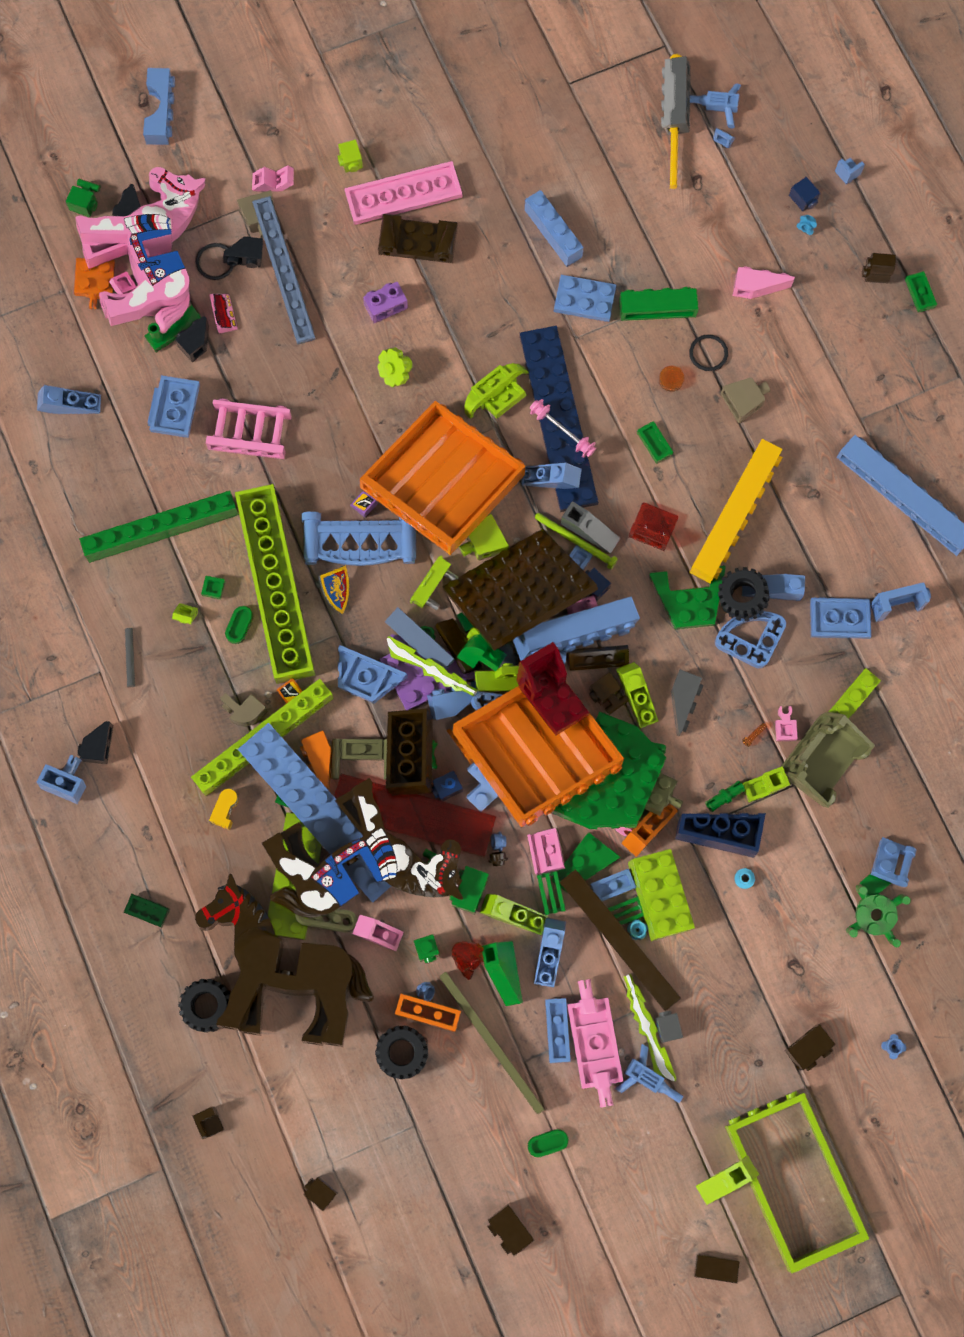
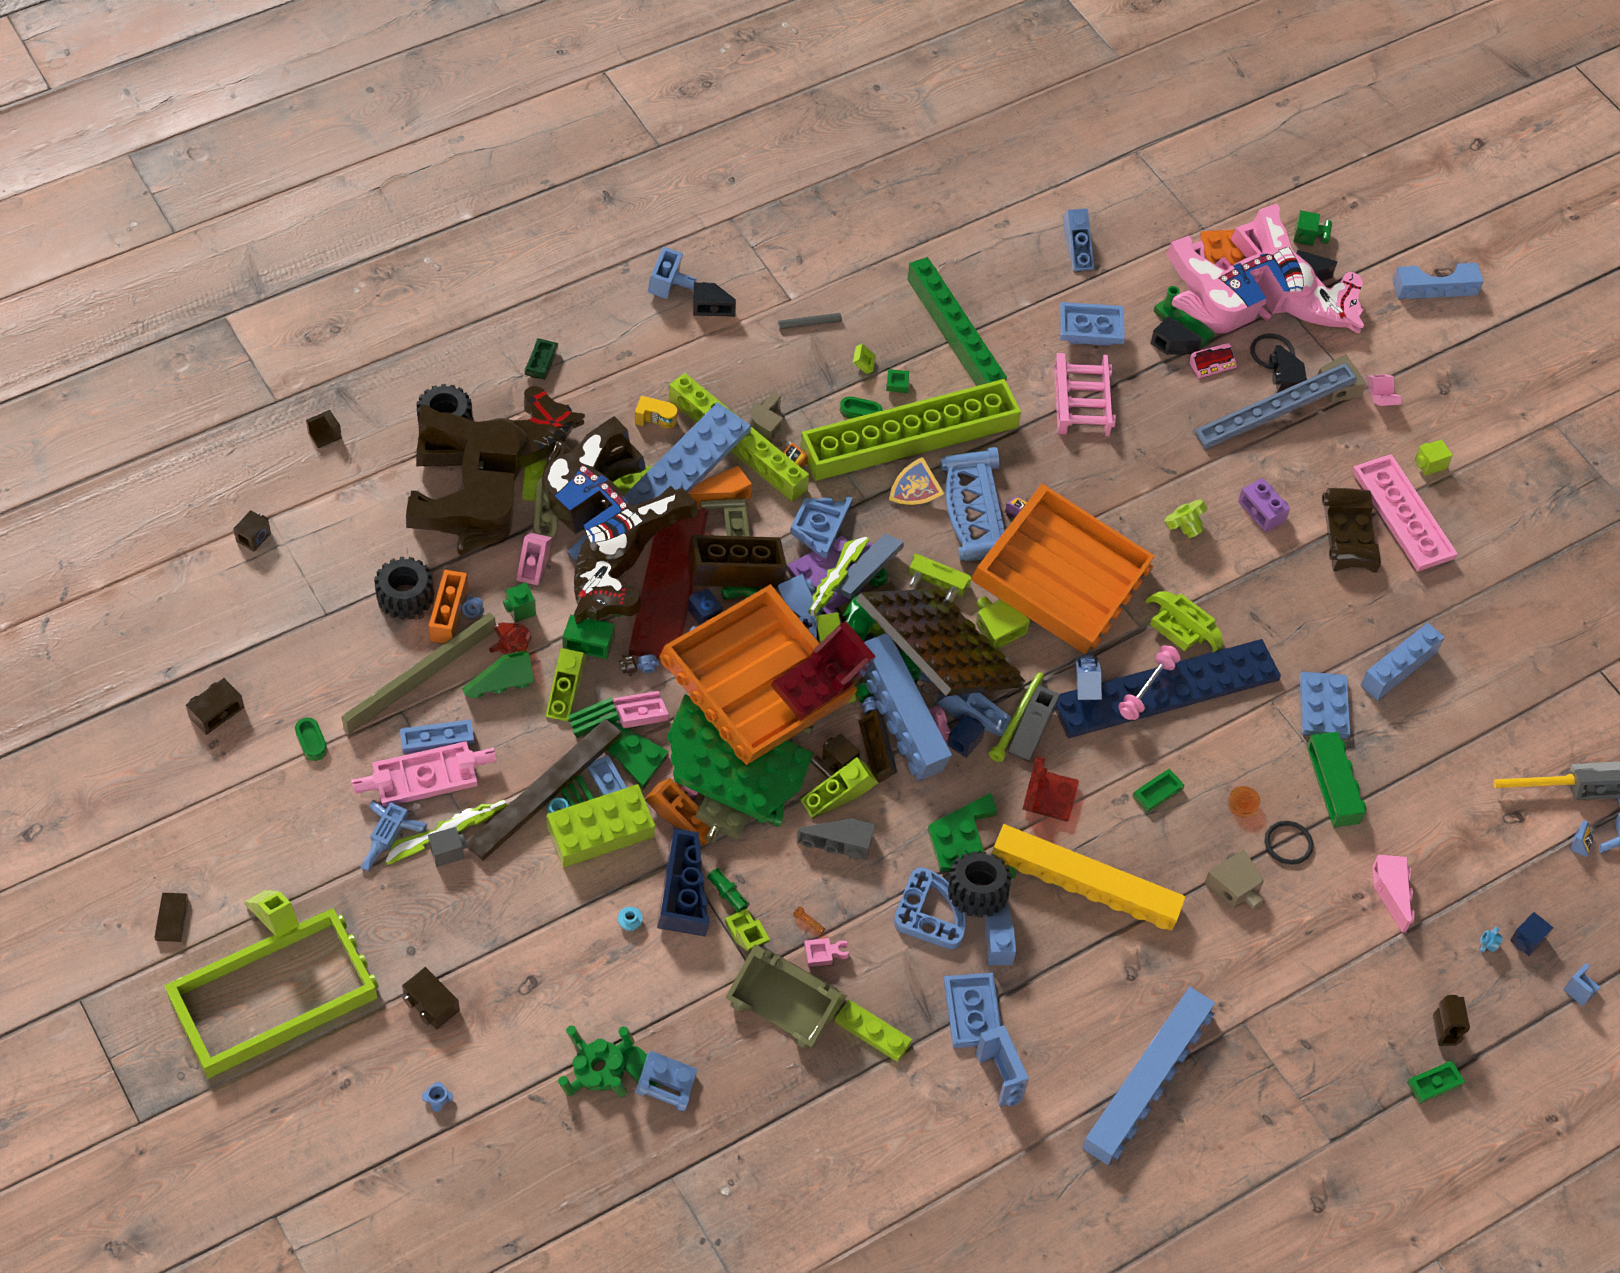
camera: 80 degrees right, 20 degrees down
(550, 952) = (528, 721): medium blue slope -> none

